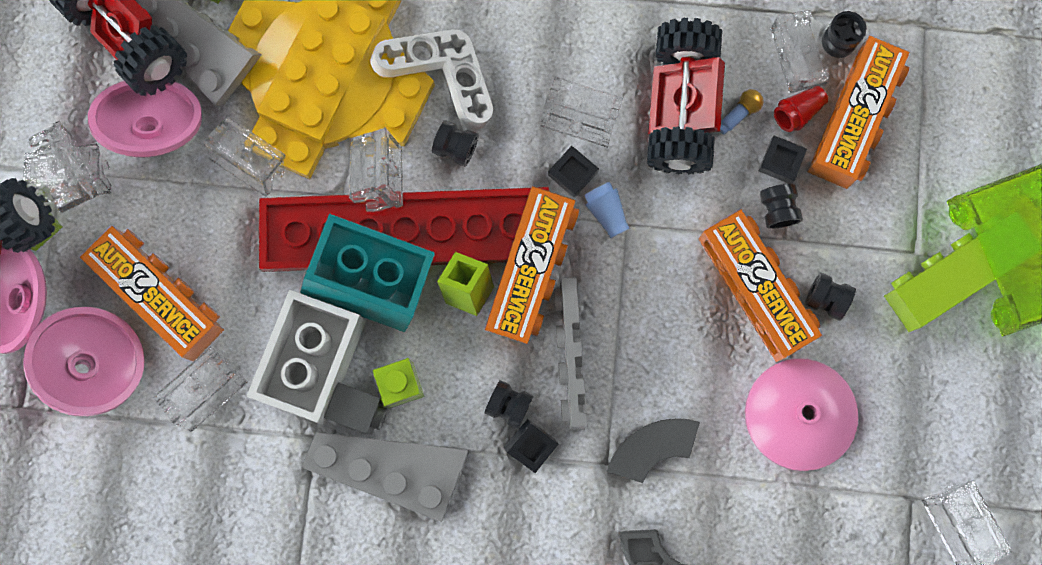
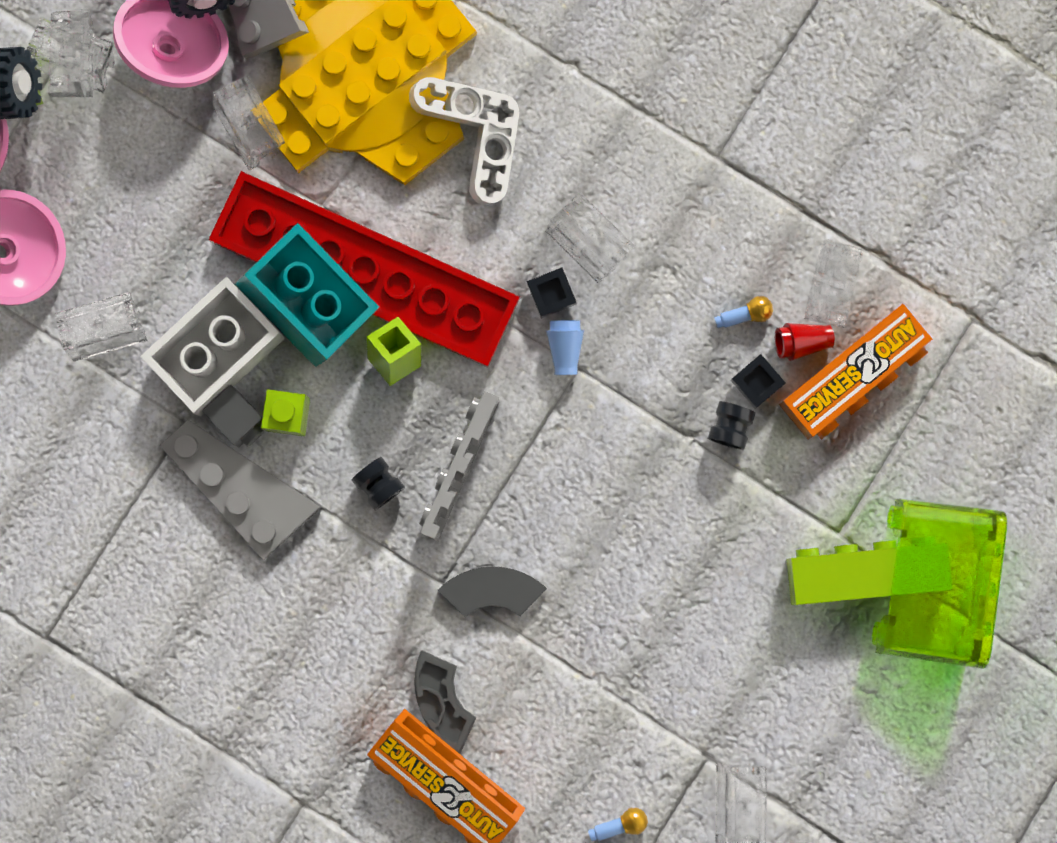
camera: 25 degrees right, 5 degrees up
(152, 293) = (99, 213): brick -> none
(376, 170) = (363, 200): clear hinge -> none
(455, 143) = (452, 209): black wheel -> none
(530, 265) = (462, 362): brick -> none
(531, 445) = (379, 531): black plate -> none
(686, 96) = (694, 275): plate -> none
(759, 285) = (670, 489): brick -> none
(777, 420) = (618, 623): bright pink dish -> none
(830, 296) = (730, 534): black wheel -> none
(848, 27) = (889, 284): black wheel -> none

